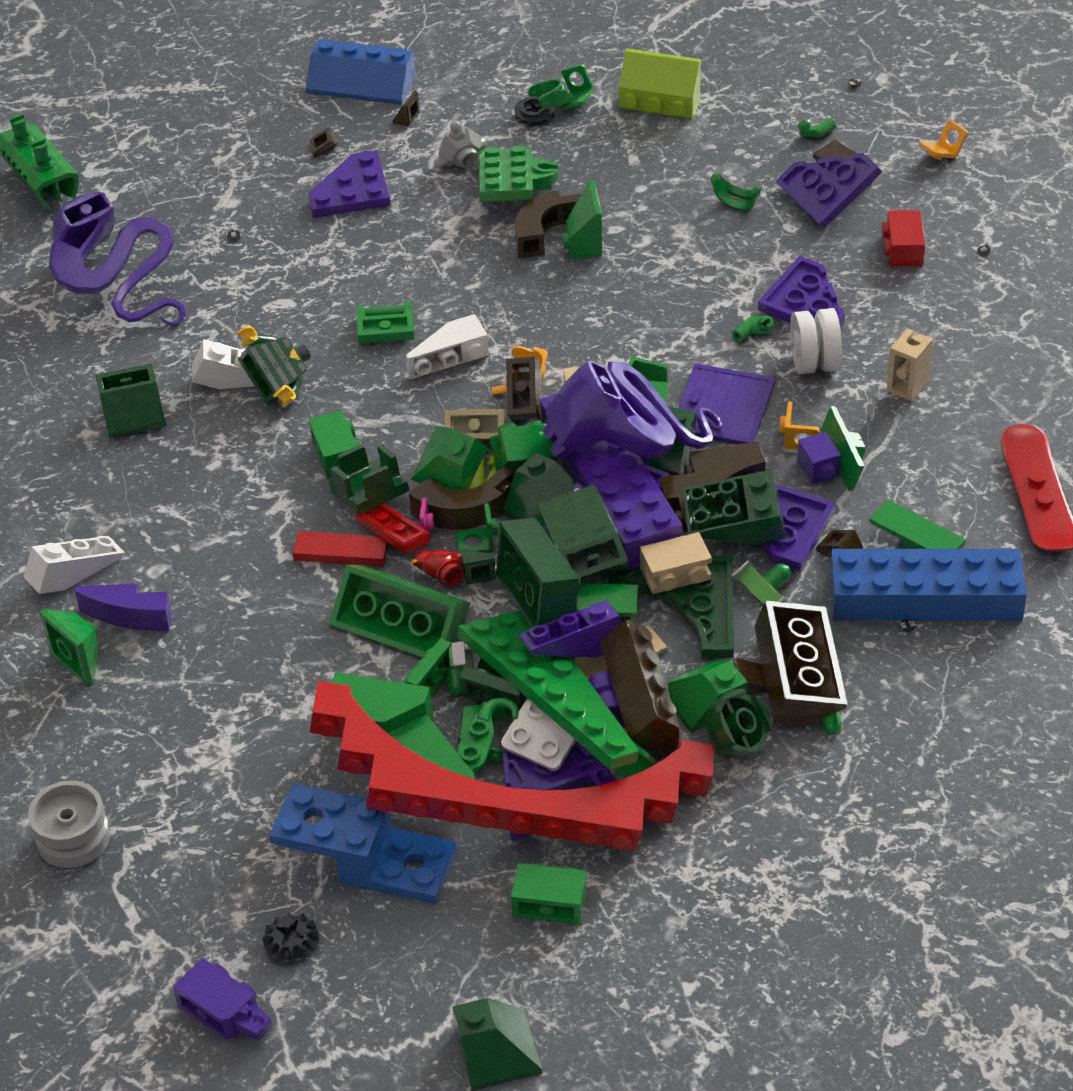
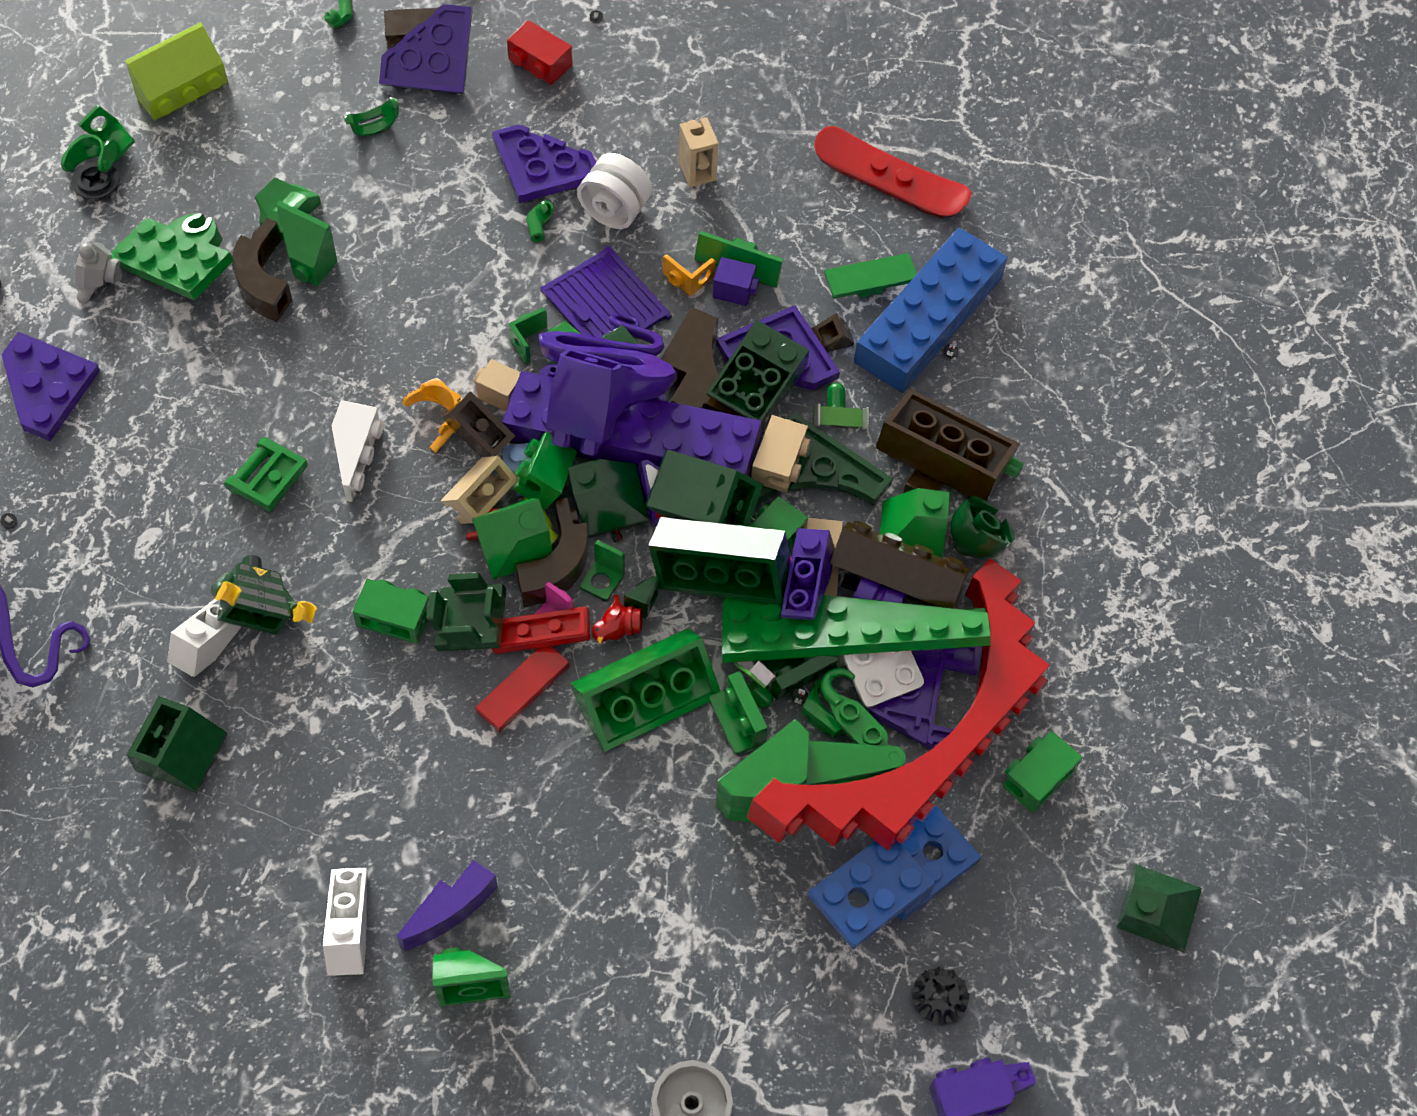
camera: 60 degrees left, 15 degrees up
(619, 200) = (288, 193): none -> green slope

